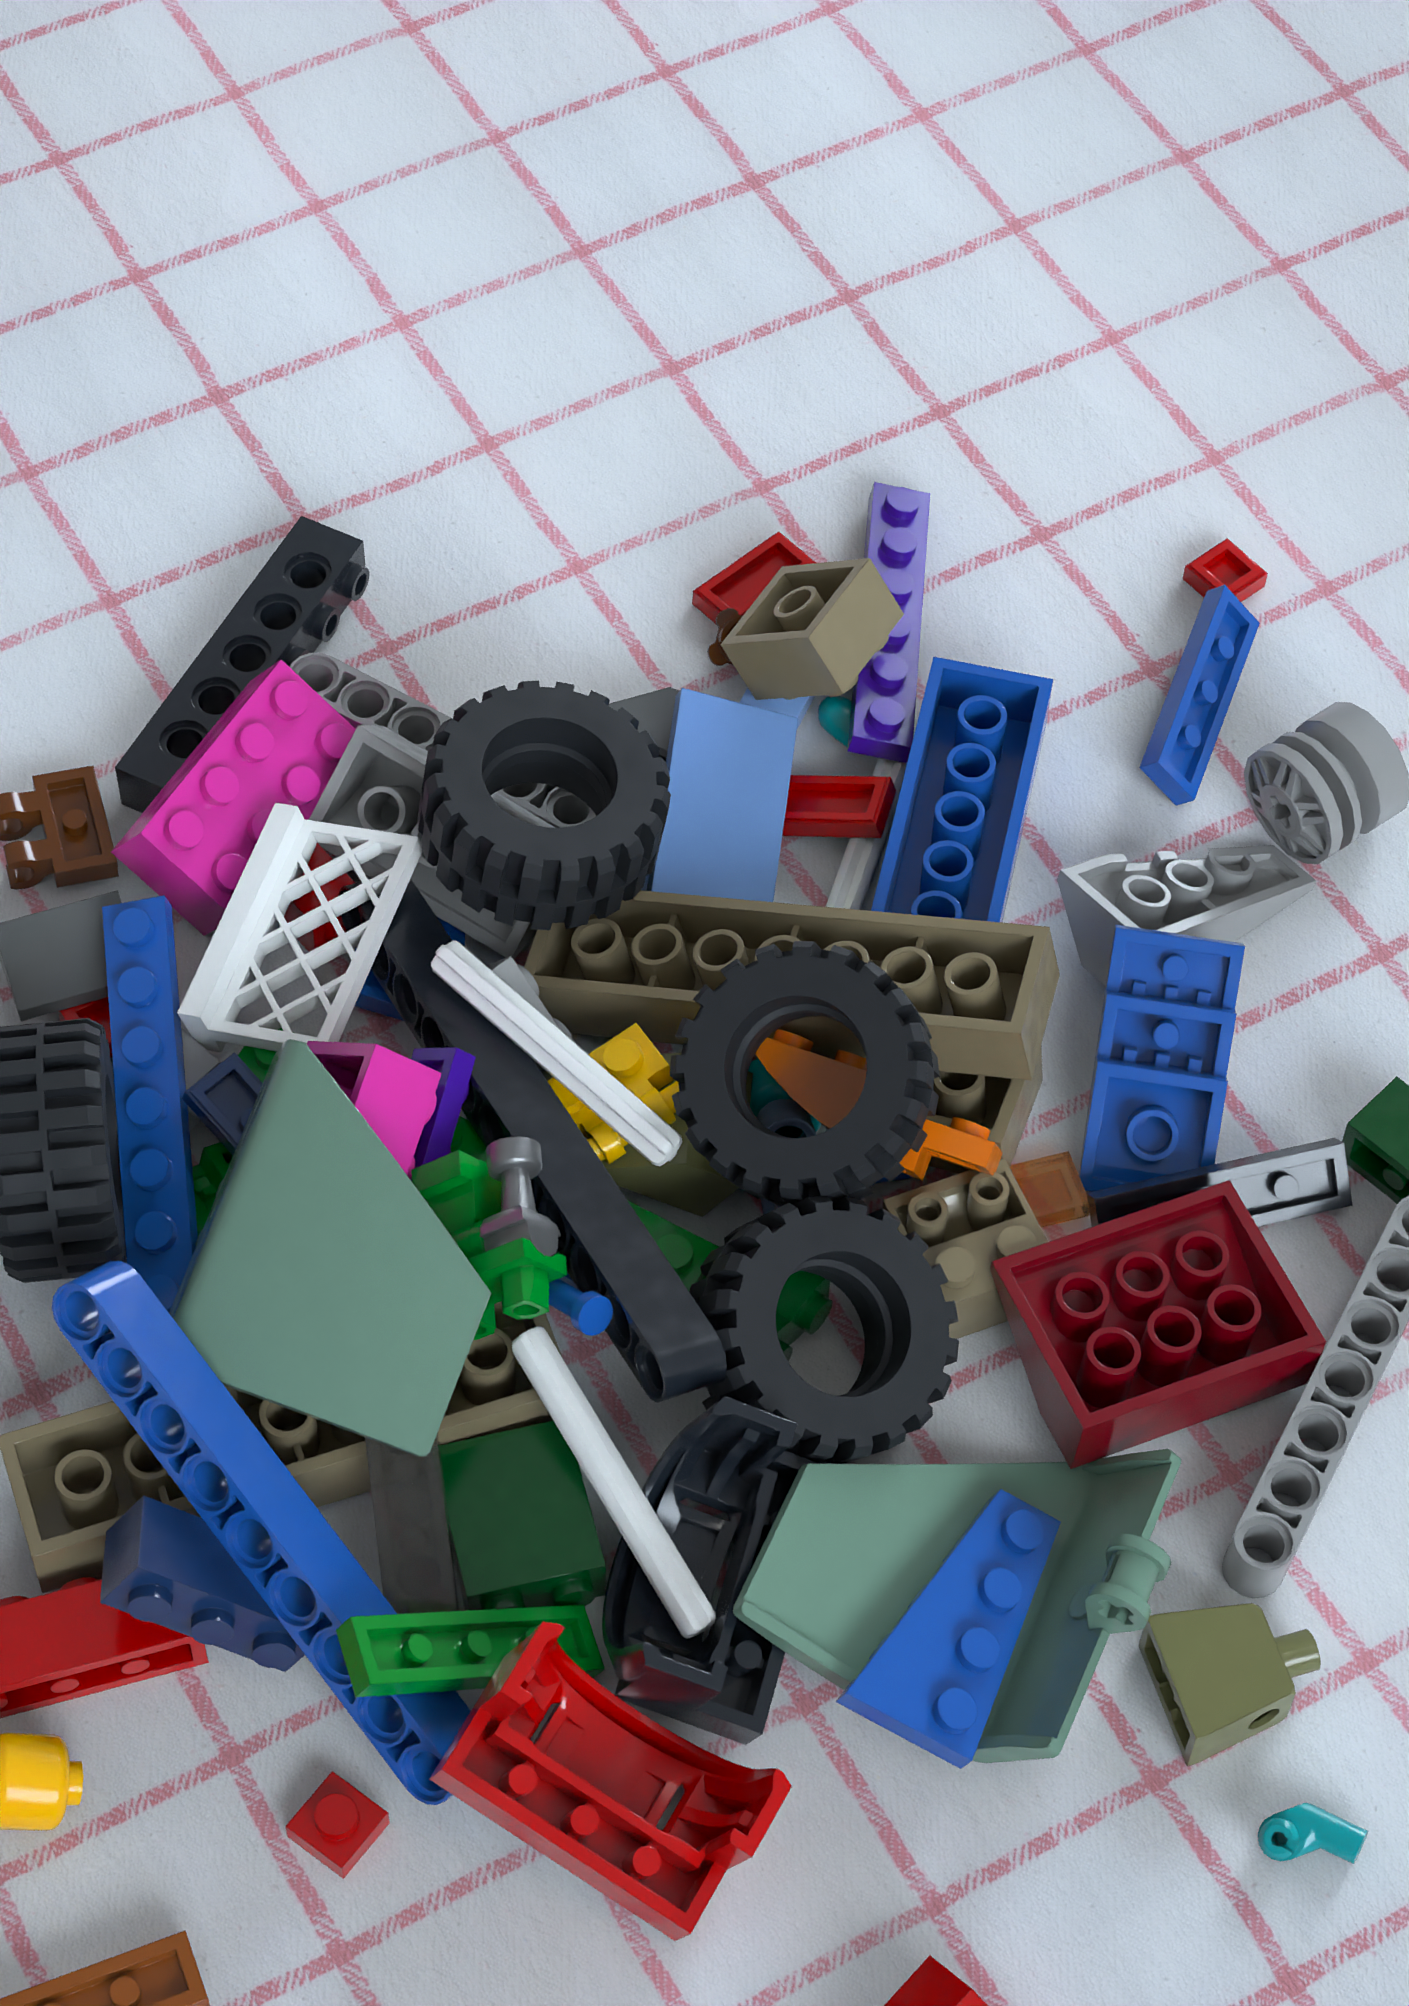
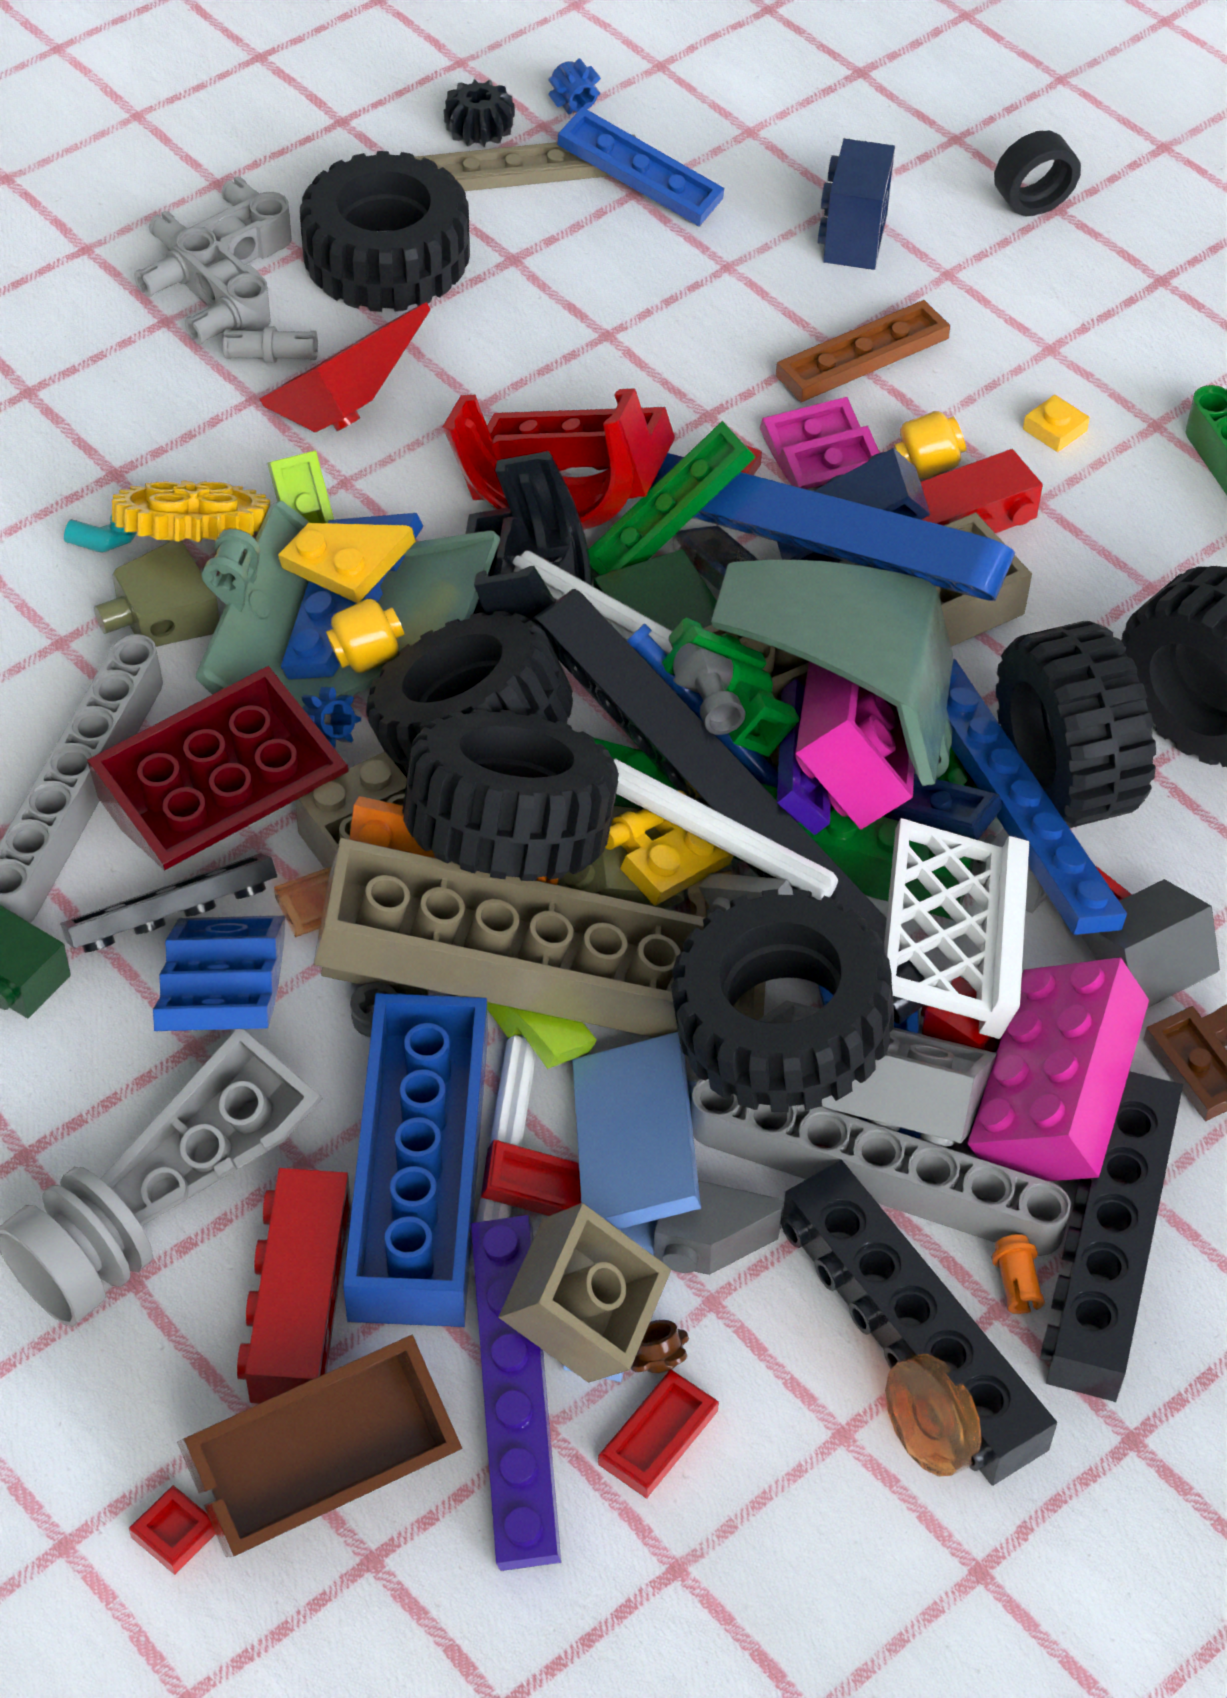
camera: 170 degrees right, 5 degrees down
(186, 1838) = (818, 442): none -> dark pink slope
(358, 648) = (1018, 1272): none -> orange pin
(464, 586) = (911, 1289): none -> black brick
(497, 513) = (932, 1415): none -> clear orange tile
(946, 1483) = (365, 636): none -> yellow head
(960, 1632) = (346, 556): none -> yellow wing
(1004, 1421) = (341, 713): none -> blue gear
(1006, 1816) = (302, 486): none -> lime slope
(1088, 567) = (319, 1446): none -> reddish brown piece
(1093, 747) = (297, 1284): none -> red brick
(1181, 1856) = (188, 510): none -> yellow gear
(1199, 695) = (196, 1359): blue plate -> none

